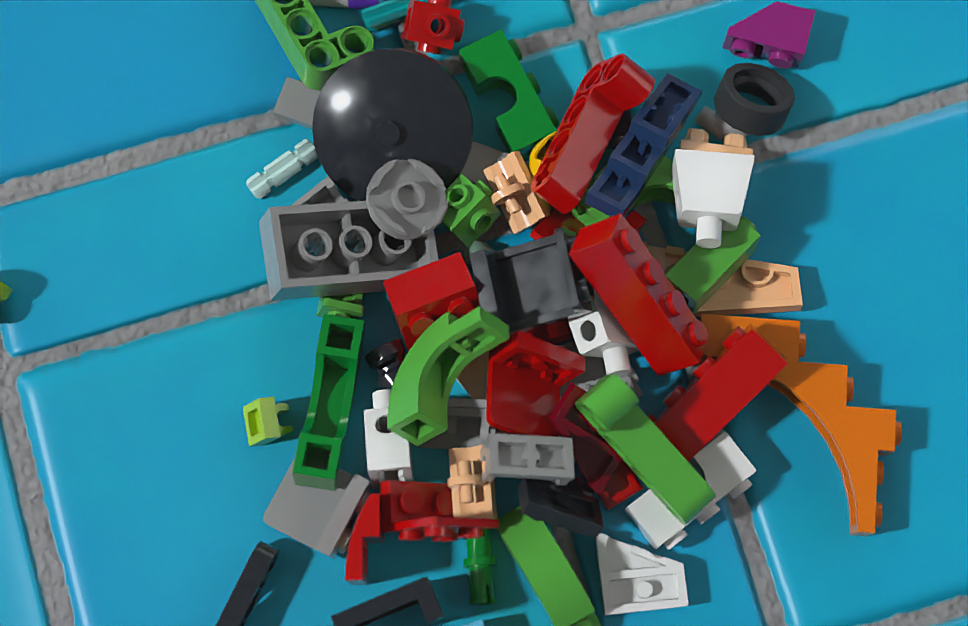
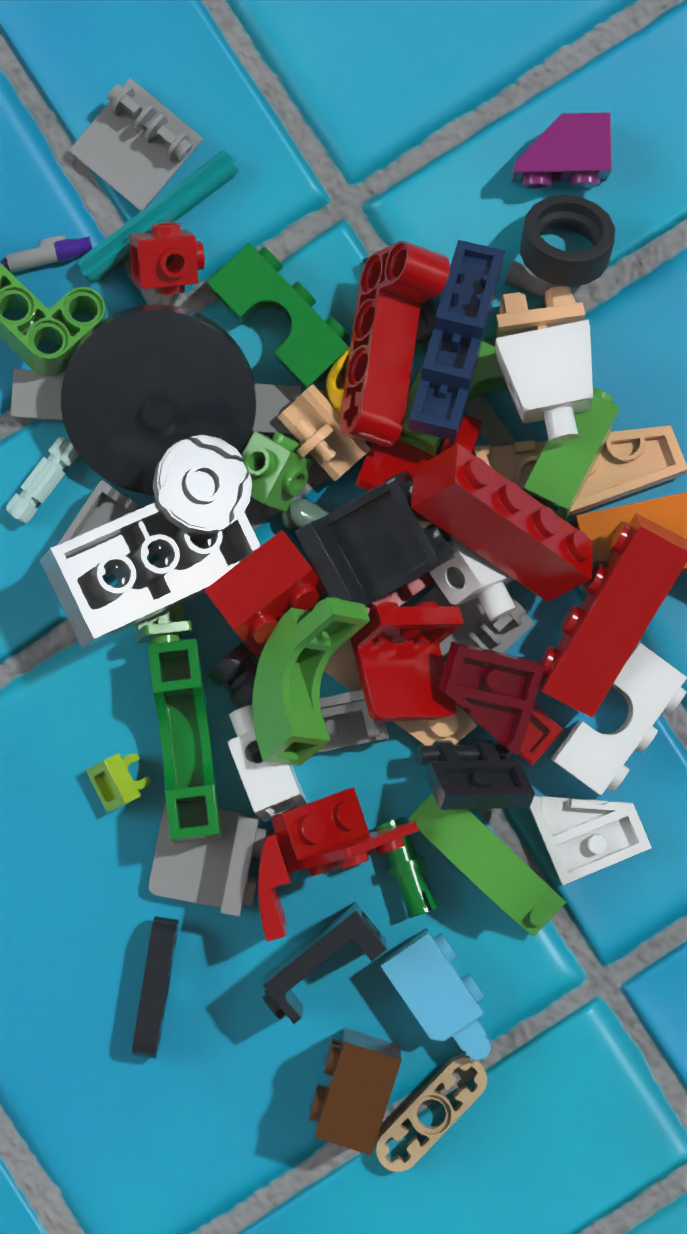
camera: 15 degrees left, 10 degrees up
(469, 493) = (373, 785): light nougat hips -> none
(528, 457) = (429, 745): light grey hinge -> none
(644, 448) = (557, 695): bright green beam -> none

